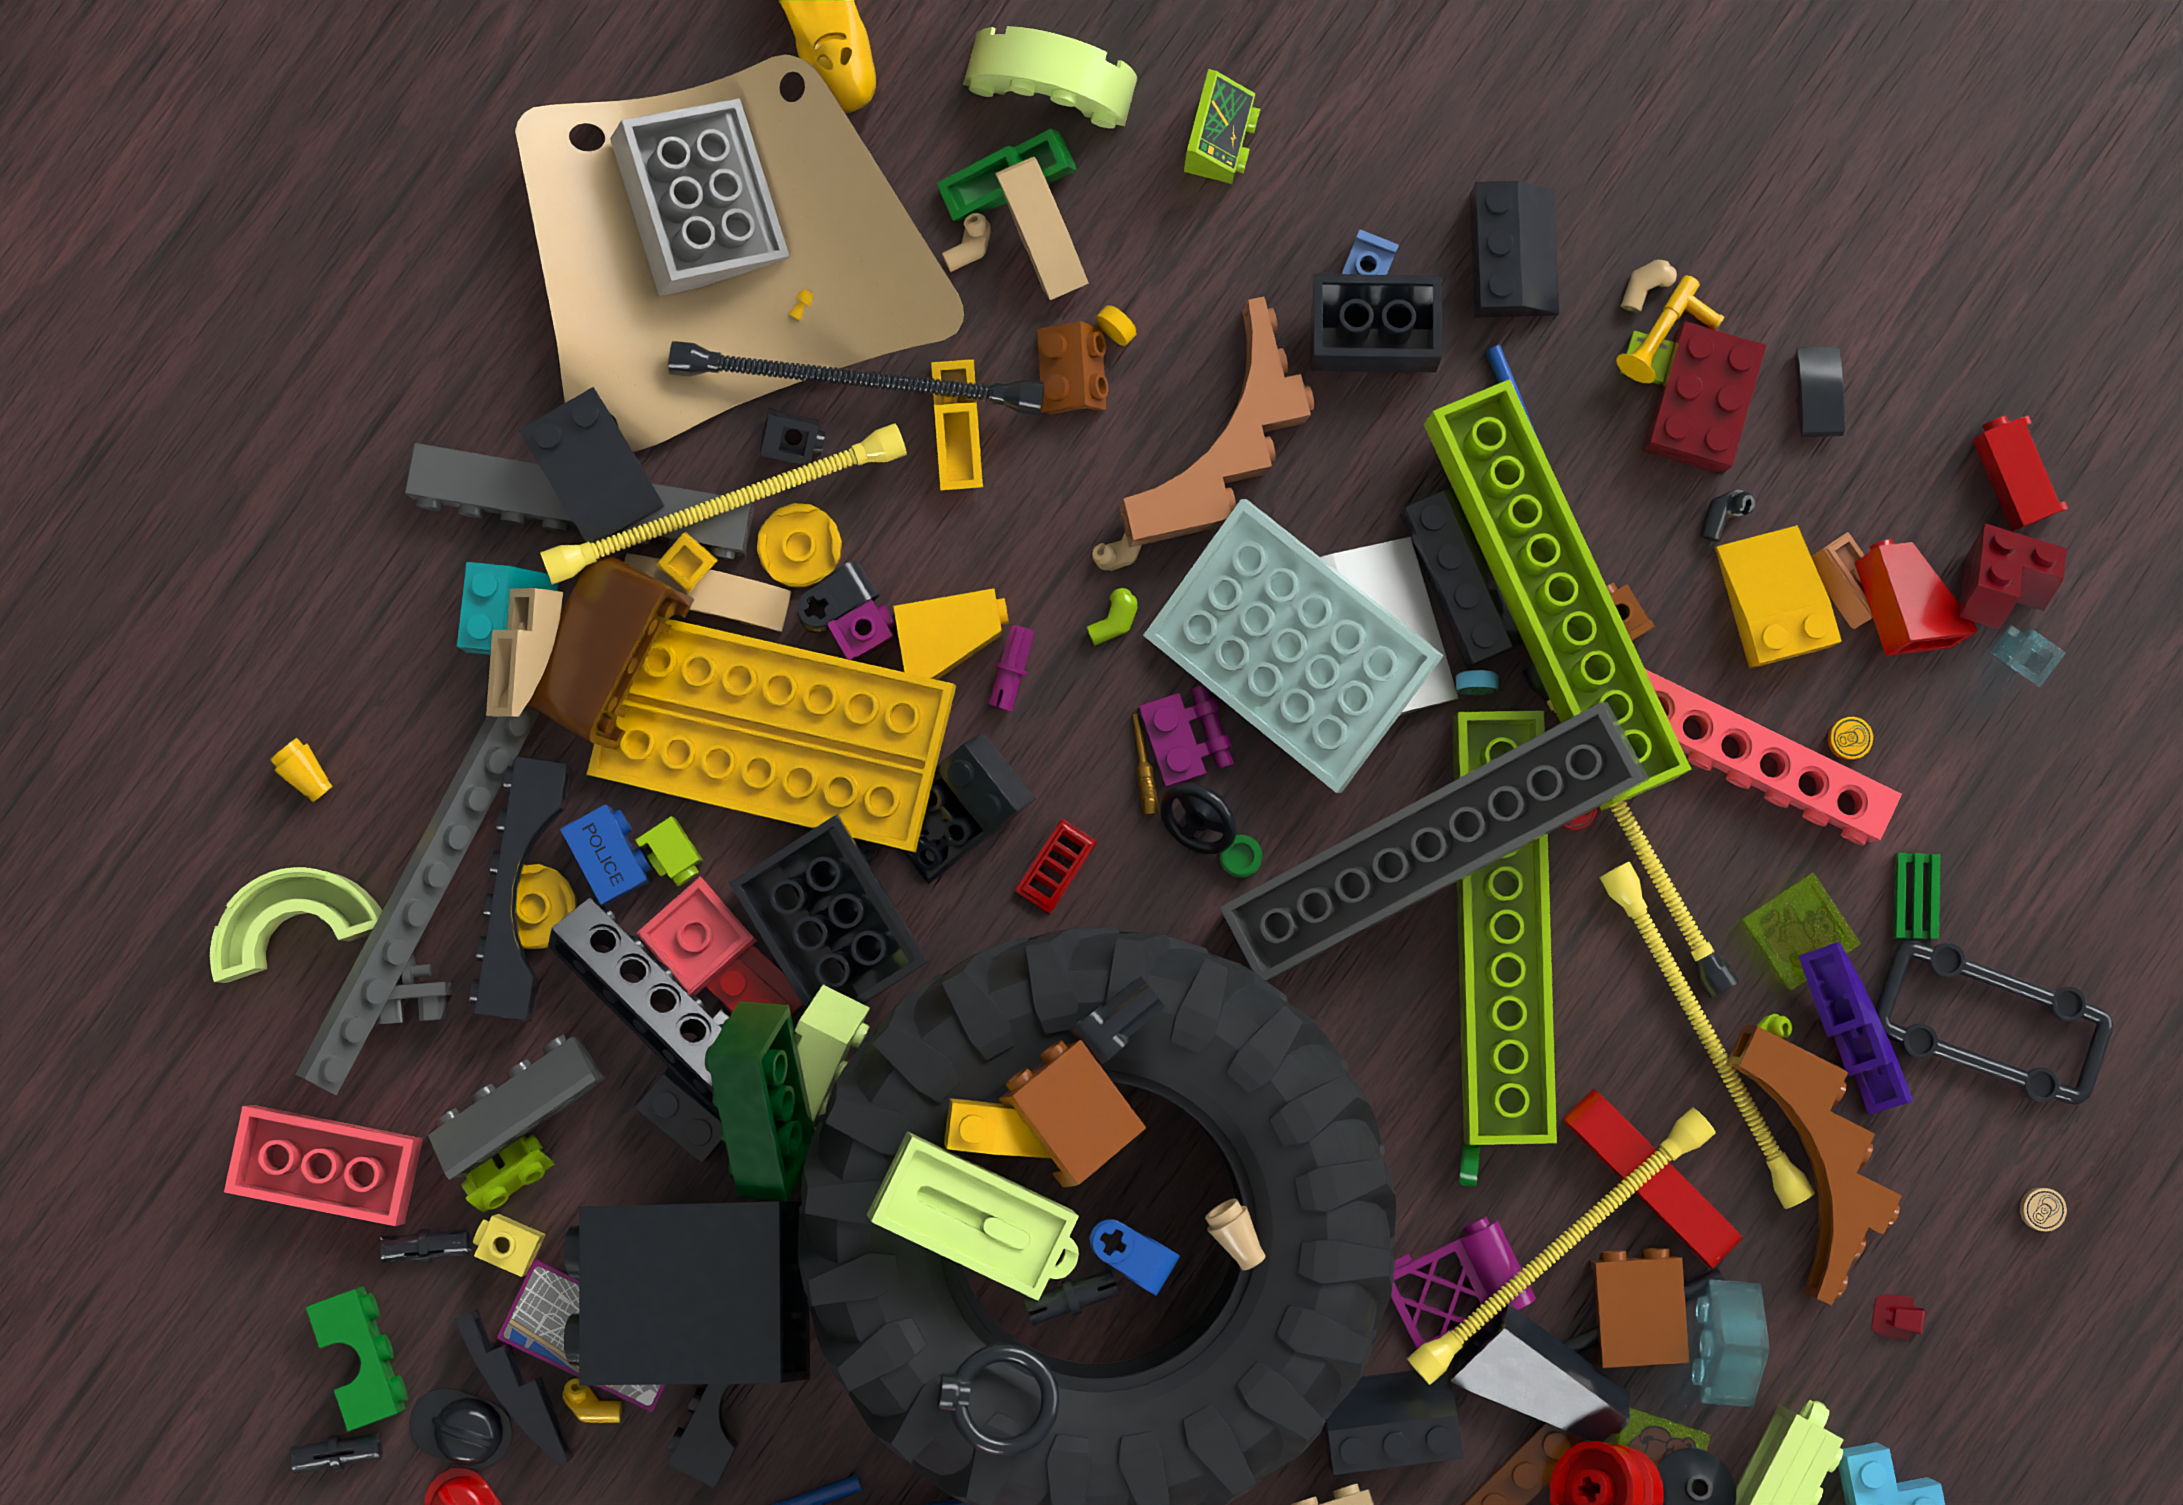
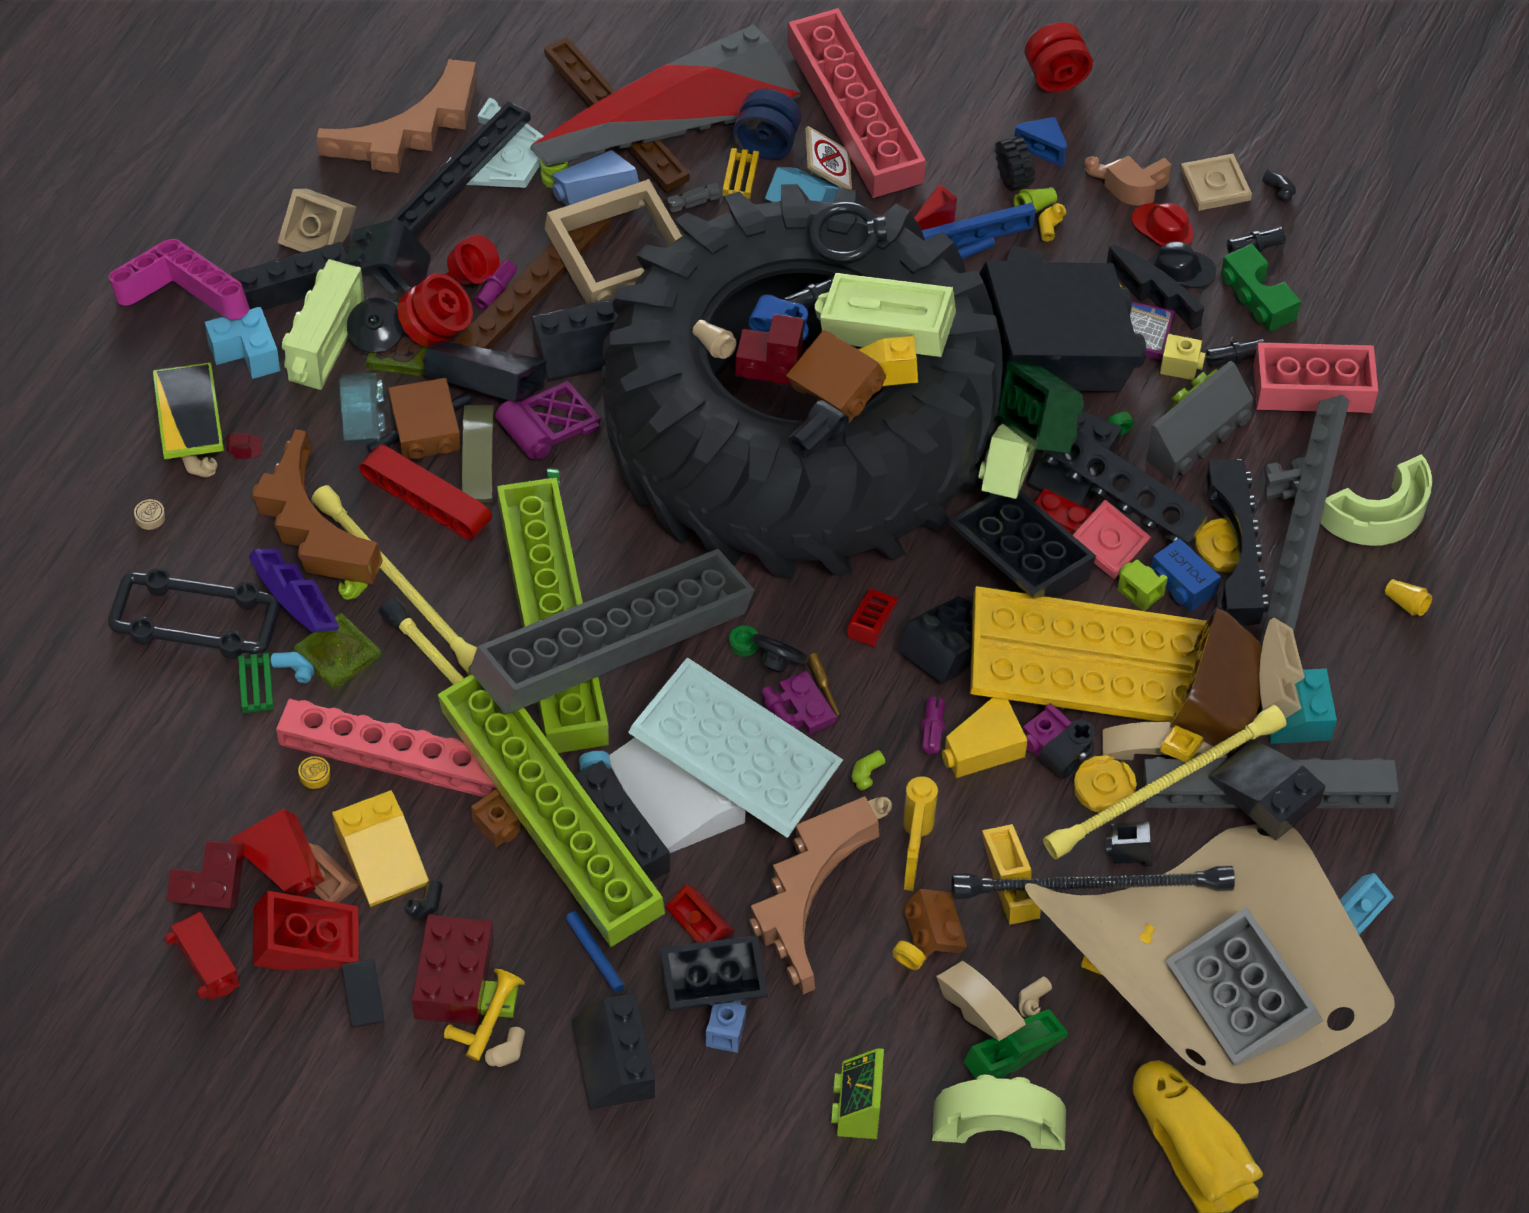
camera: 175 degrees right, 30 degrees down
(510, 310) = (1365, 901): none -> medium azure slope
(633, 1135) = (1123, 420): none -> green tile
(1060, 519) = (918, 820): none -> yellow piece
(1162, 1181) = (773, 353): none -> dark red brick
(1371, 434) = (698, 916): none -> red slope
(1564, 1283) = (478, 452): none -> olive slope
(1686, 1135) = (406, 508): light yellow hose -> none
(1861, 917) = (303, 668): none -> medium azure arm
(1886, 485) = (303, 933): none -> red slope
(1971, 1284) = (200, 467): none -> tan arm
(1979, 1381) = (187, 410): none -> black slope
(2028, 653) = (190, 837): clear light blue brick -> none

